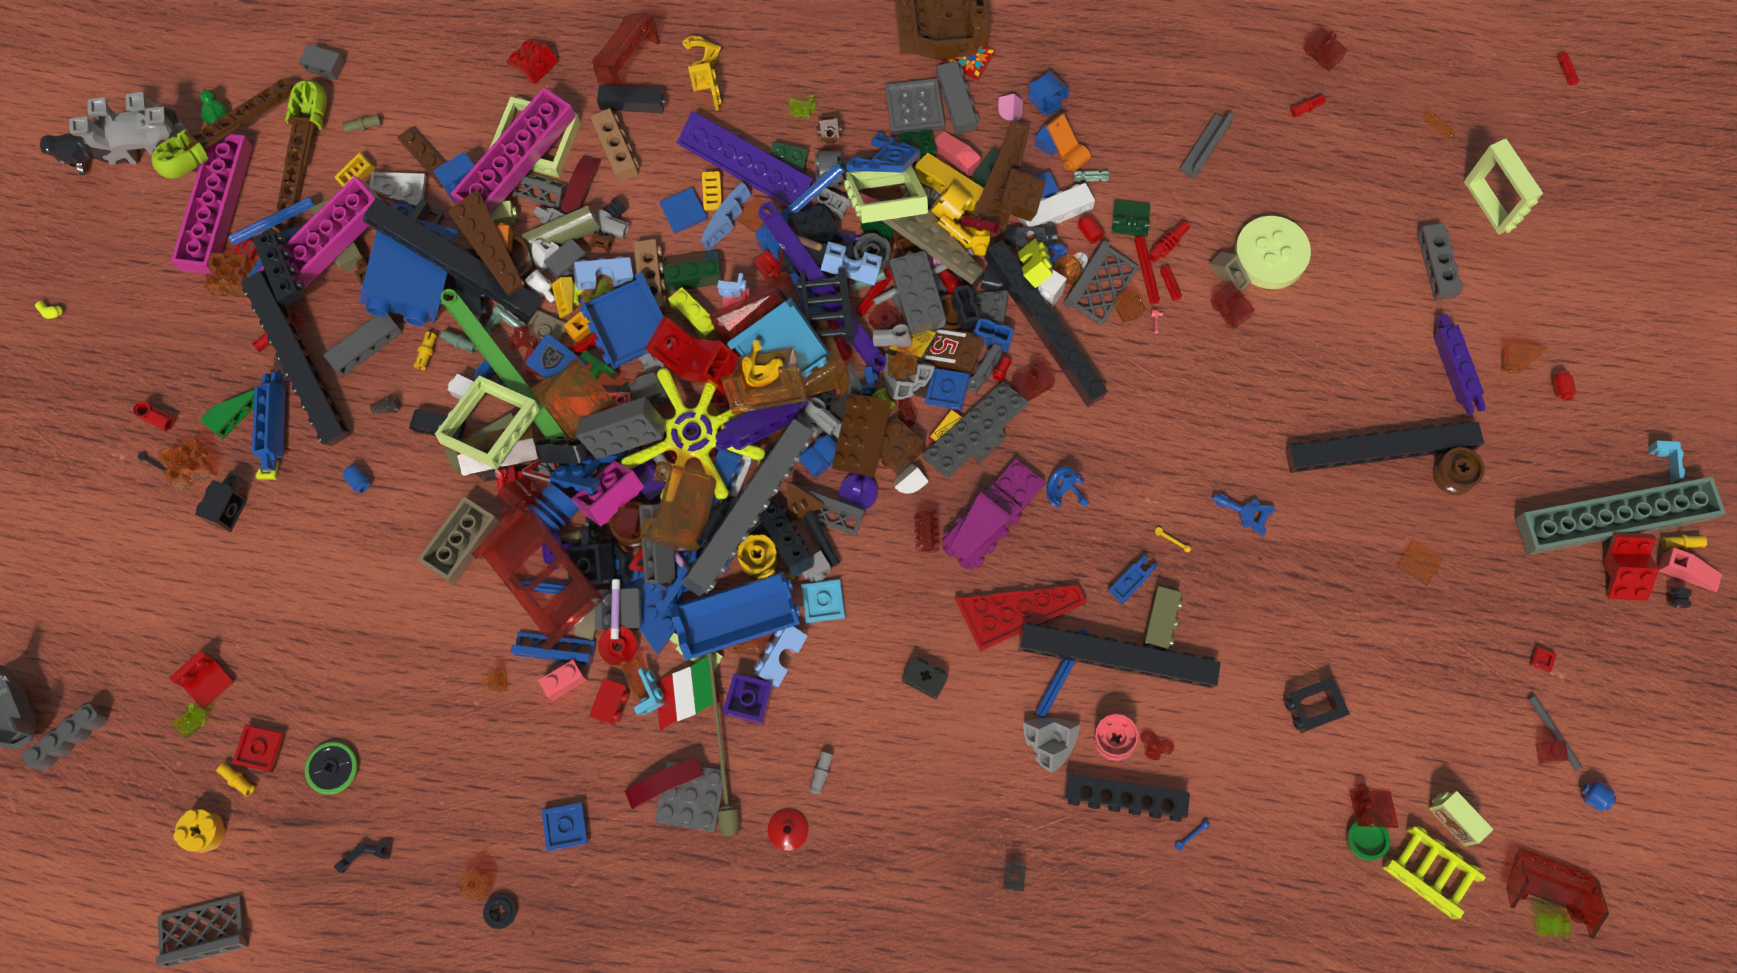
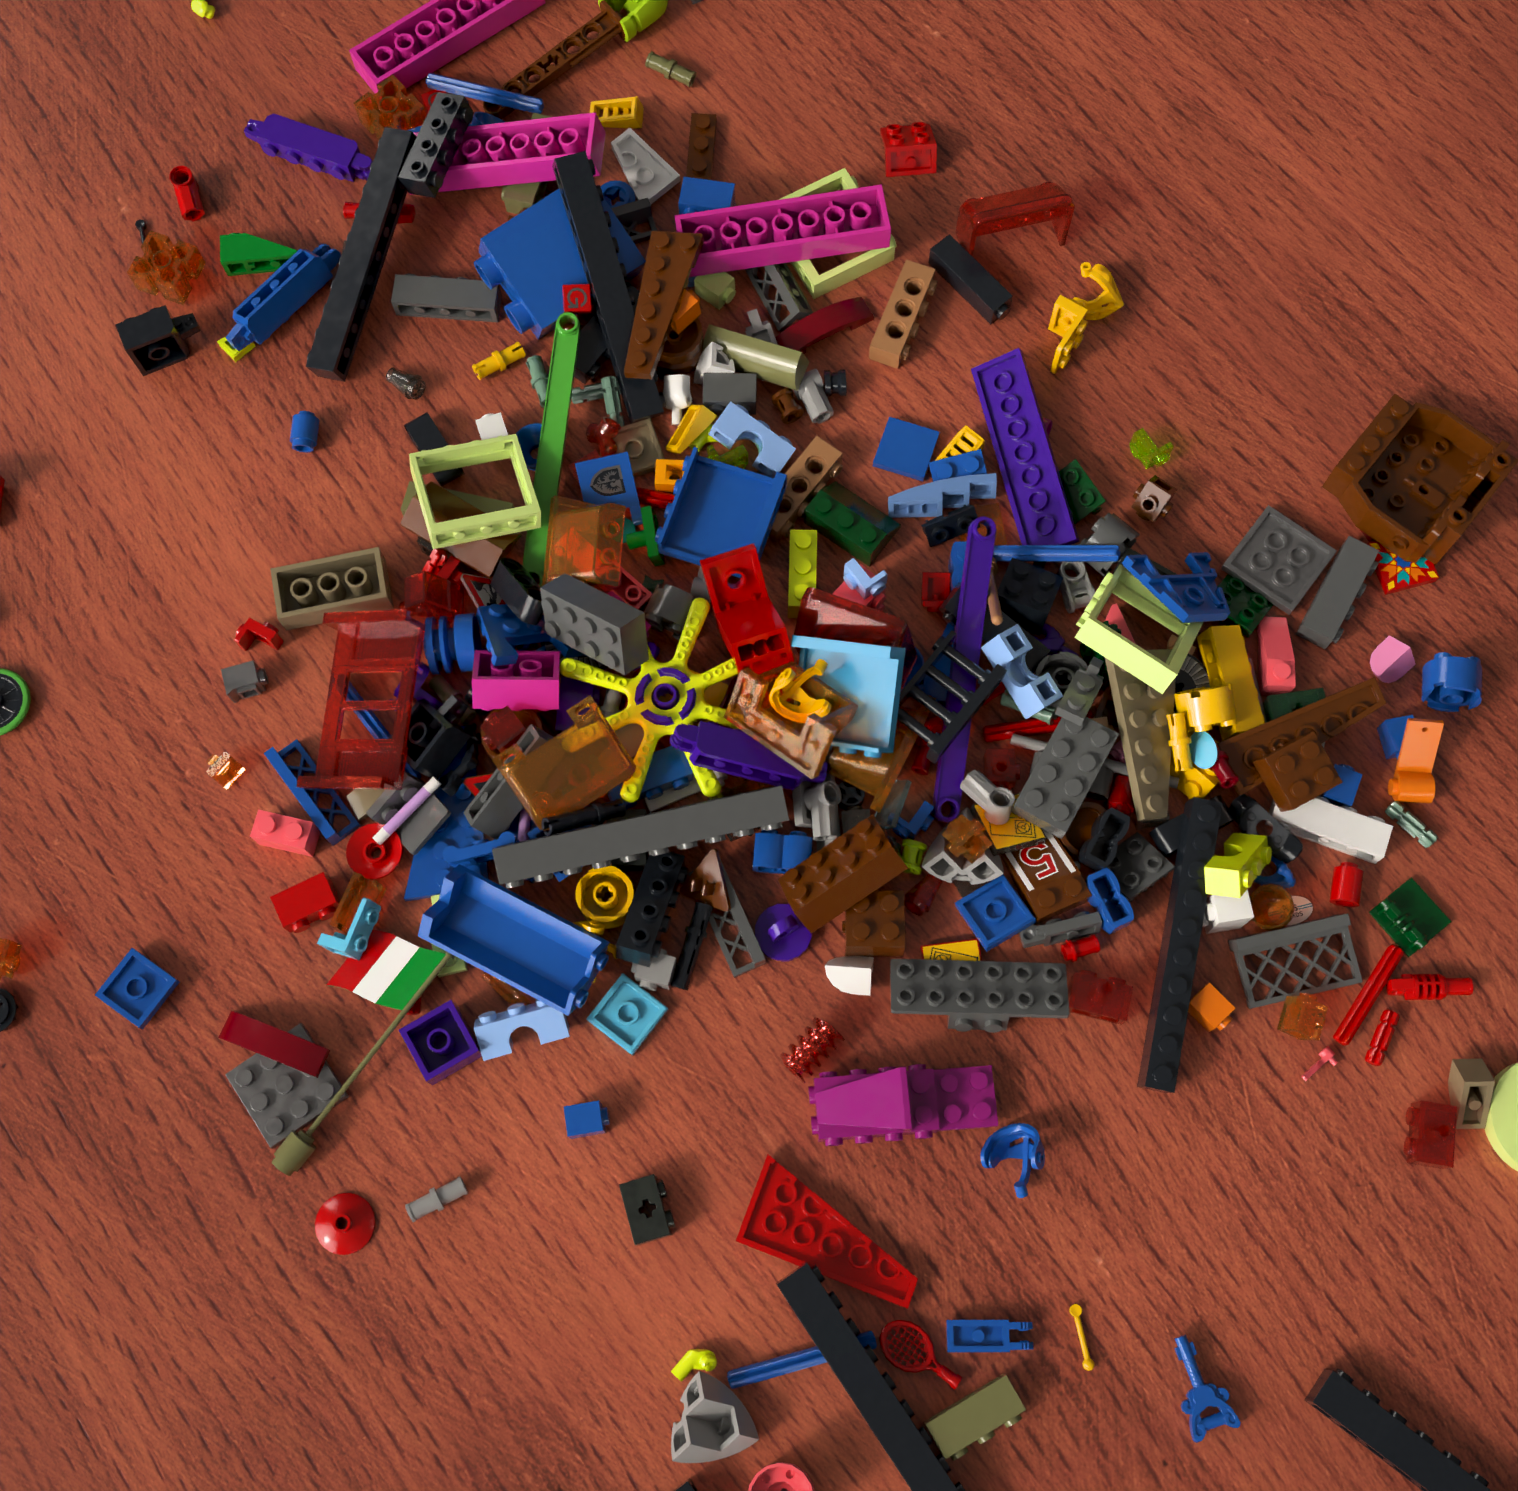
camera: 45 degrees right, 0 degrees up
(200, 331) = (309, 147): none -> dark purple hinge
(441, 279) = (576, 298): none -> red tile
(443, 597) = (263, 632): none -> red bracket
(459, 629) = (244, 680): none -> flat silver window
(718, 195) = (959, 465): none -> blue plate
(745, 225) = (946, 528): none -> black hinge
(854, 666) = (586, 1119): none -> blue brick
(889, 247) = (1081, 693): none -> dark grey hinge
(969, 224) = (1203, 750): none -> medium azure sticker
(1015, 722) = (694, 1359): none -> neon yellow arm
(1086, 340) = (1211, 1008): none -> orange brick
(1128, 615) = (943, 1372): none -> red piece

